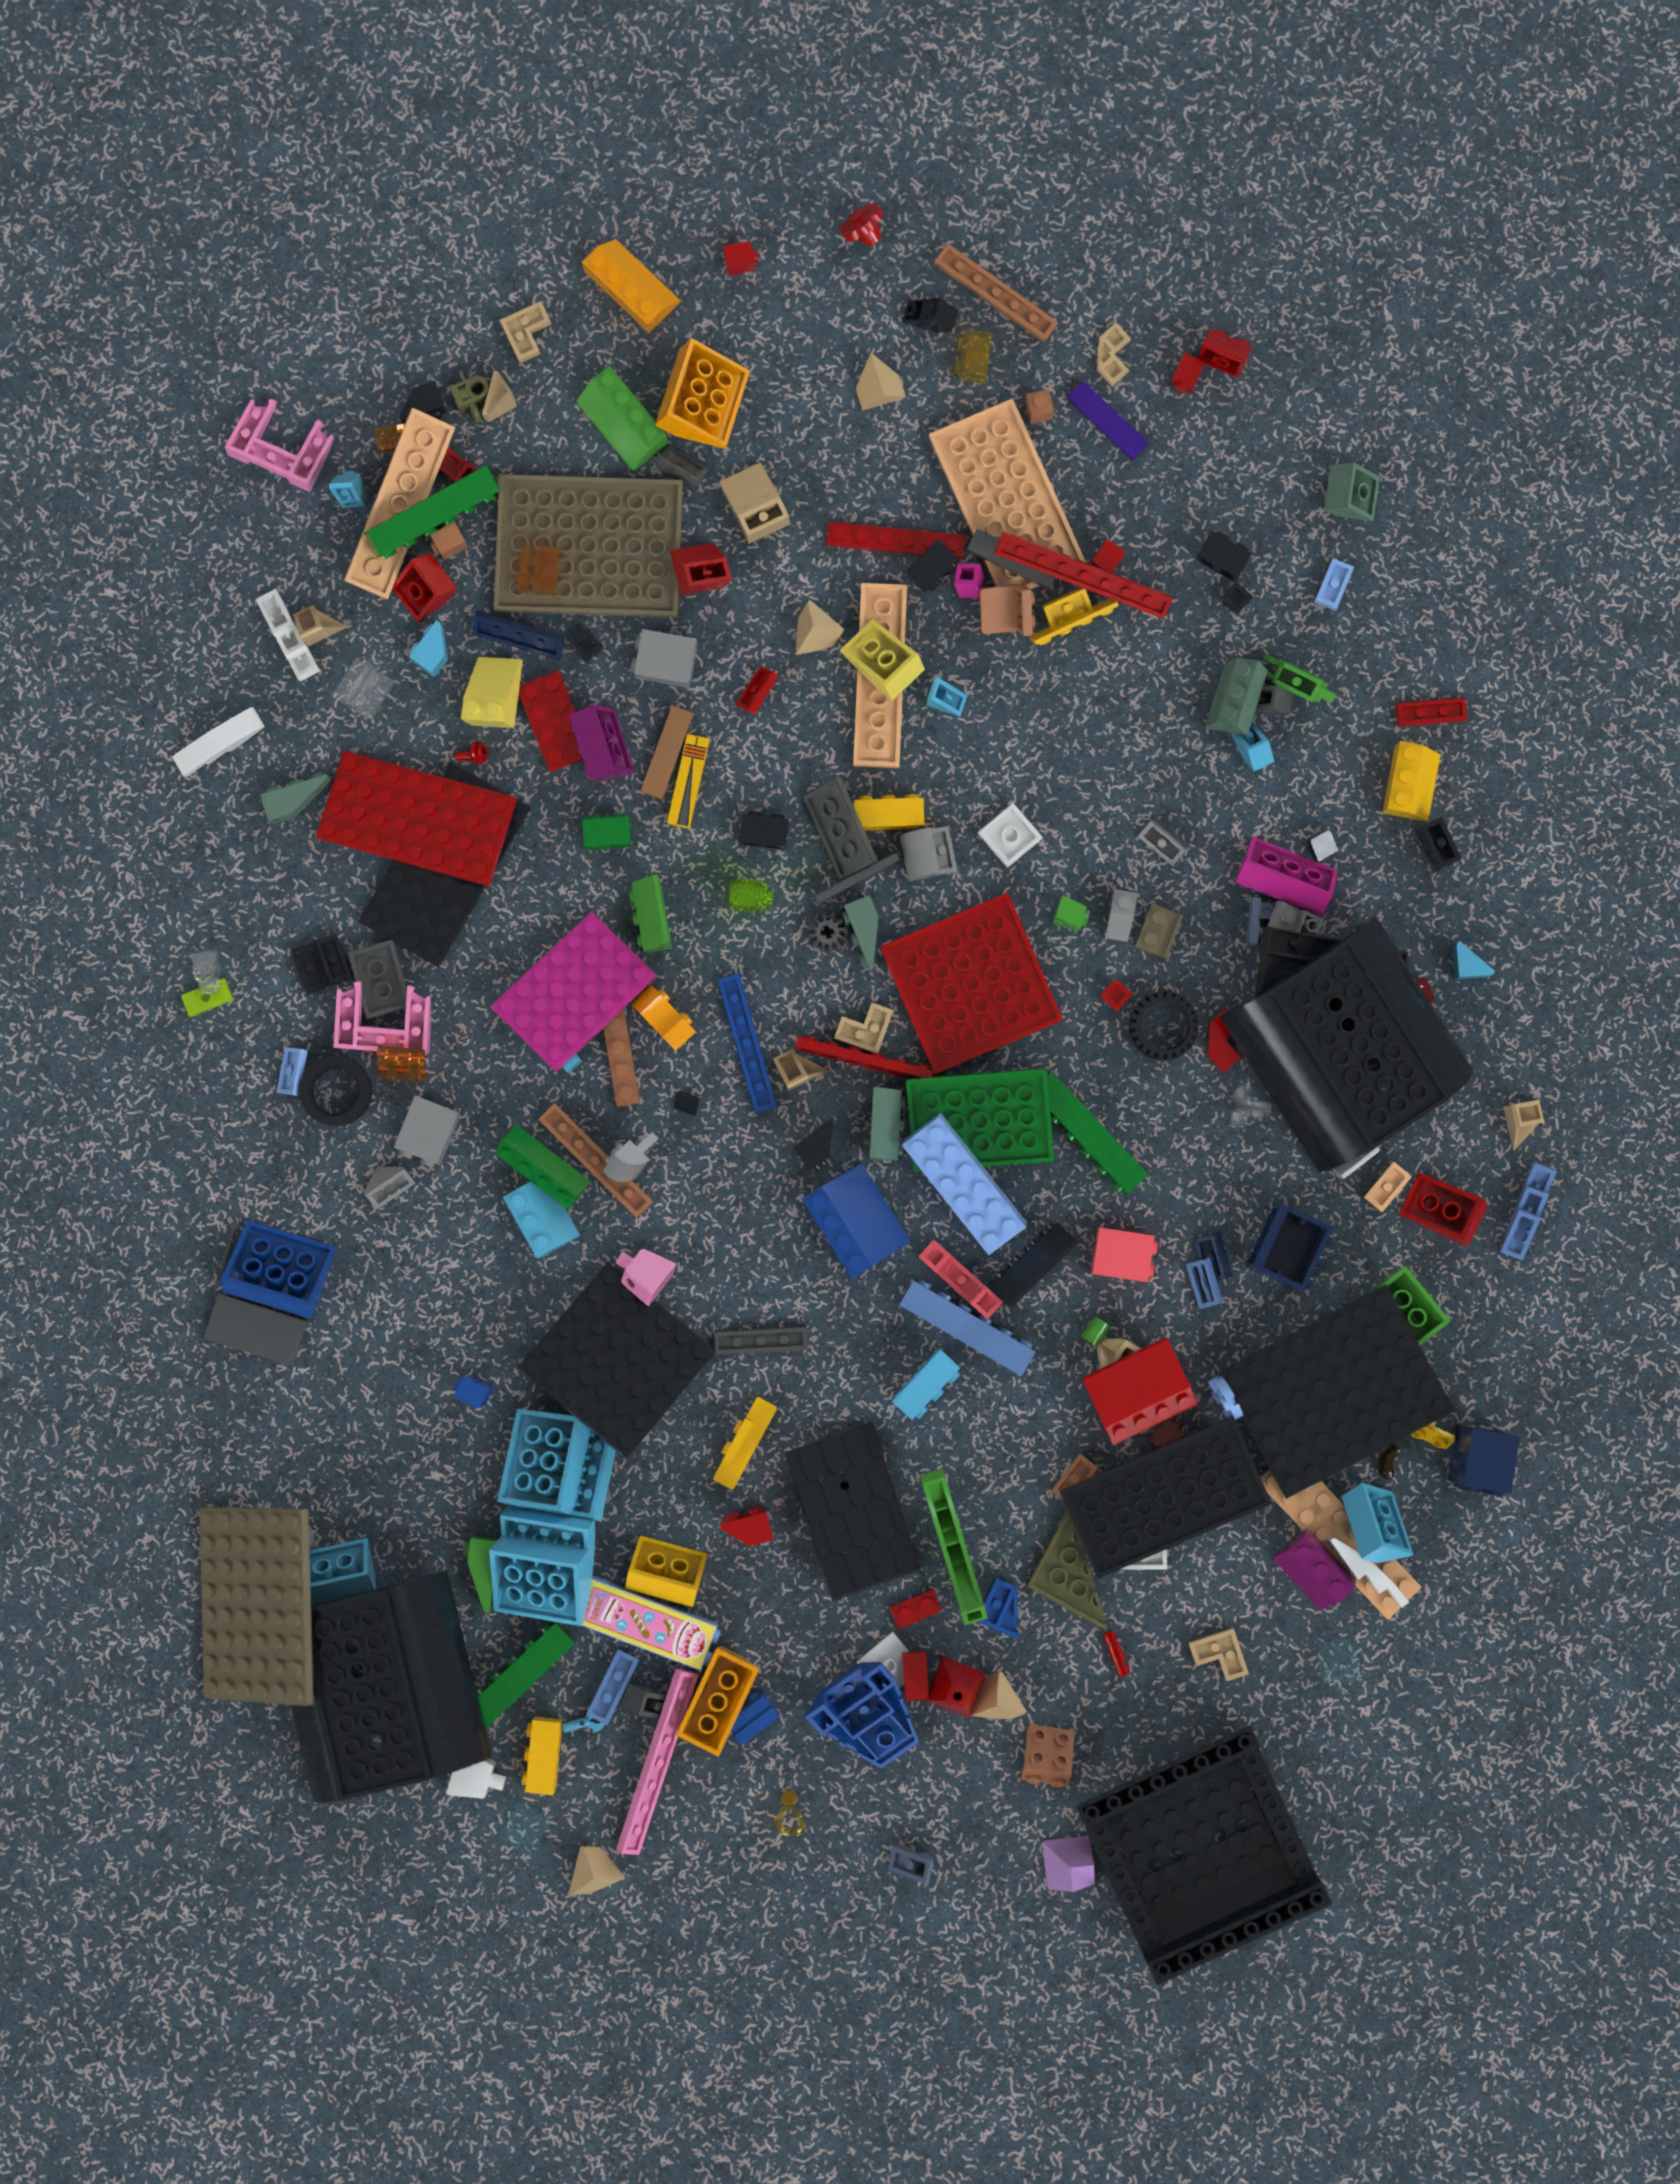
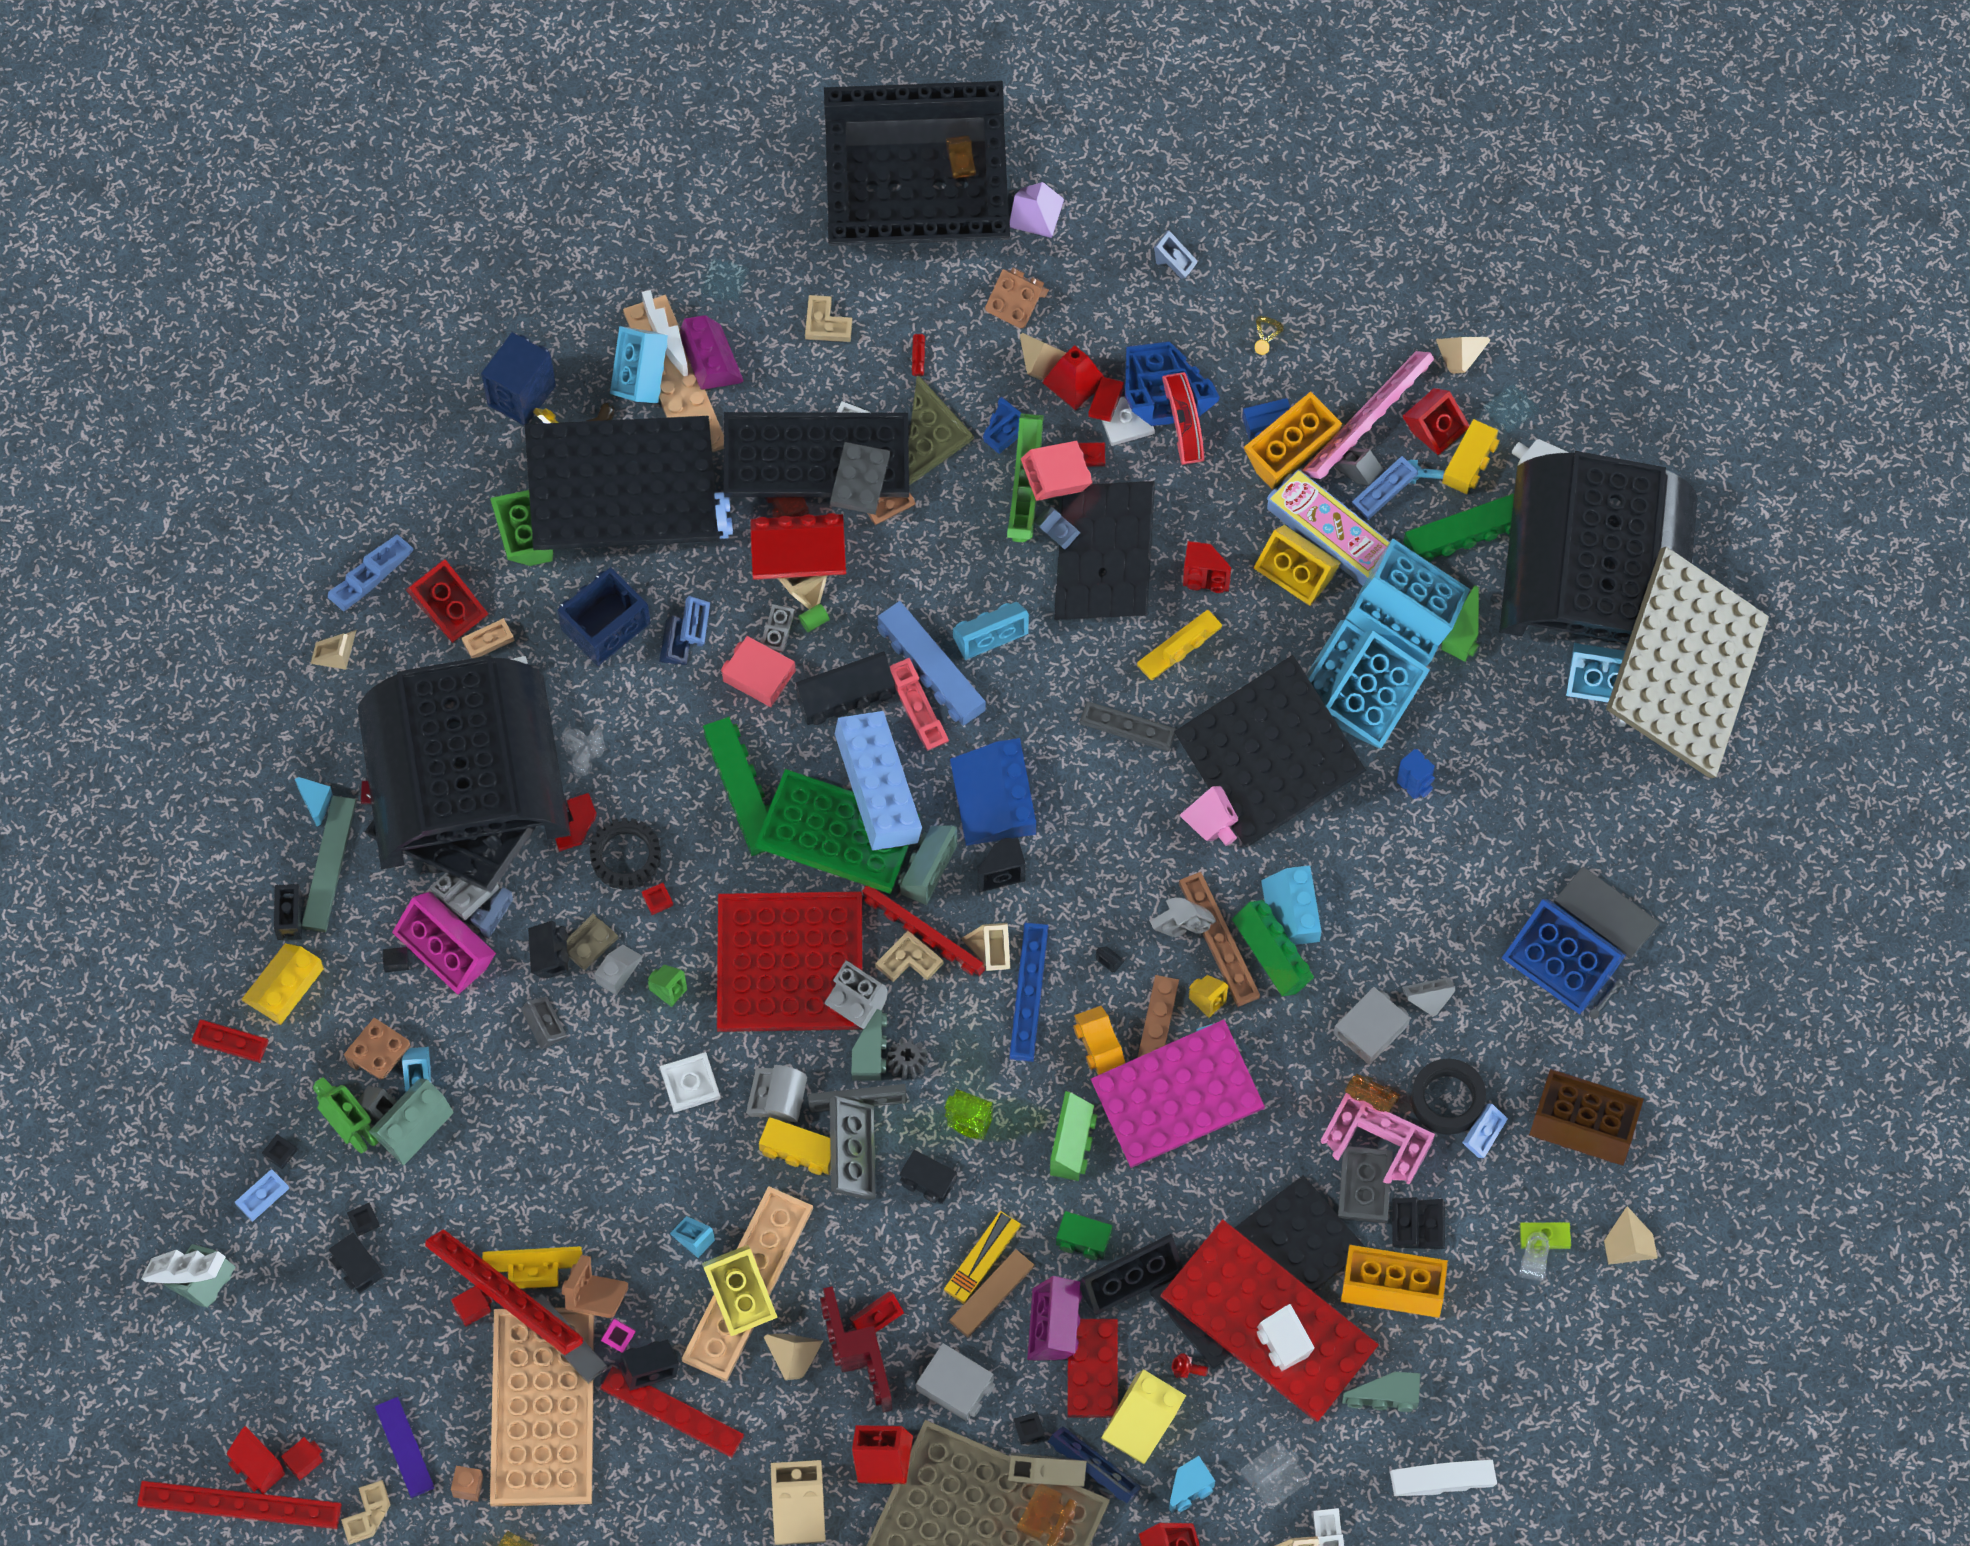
camera: 160 degrees left, 20 degrees down
(130, 1019) = (1629, 1240): none -> tan slope
(206, 1121) = (1586, 1117): none -> reddish brown slope
(321, 898) = (1394, 1281): none -> light orange slope
(391, 795) = (1285, 1338): none -> white slope
(552, 810) = (1131, 1275): none -> black slope
(557, 603) = (1046, 1470): none -> dark tan slope
(584, 1099) = (1208, 994): none -> yellow slope
(590, 1783) = (1436, 420): none -> red slope
(759, 647) = (856, 1349): none -> dark red bracket
(831, 1684) = (1185, 418): none -> slope
(894, 963) = (856, 995): none -> light grey brick
(908, 1518) = (1057, 527): none -> sand blue slope
(927, 1568) = (1056, 470): none -> coral brick
(1111, 1485) = (860, 478): none -> dark grey plate
(1124, 1308) = (778, 627): none -> light grey slope
(1167, 1891) = (960, 156): none -> clear orange slope
(1190, 903) = (548, 950): none -> black brick
(1222, 318) = (239, 1504): none -> red tile
(1296, 747) = (377, 1049): none -> nougat bracket
(1338, 628) = (279, 1151): none -> black plate
(1367, 482) = (181, 1268): none -> white slope
(1425, 911) = (329, 864): none -> sand green tile

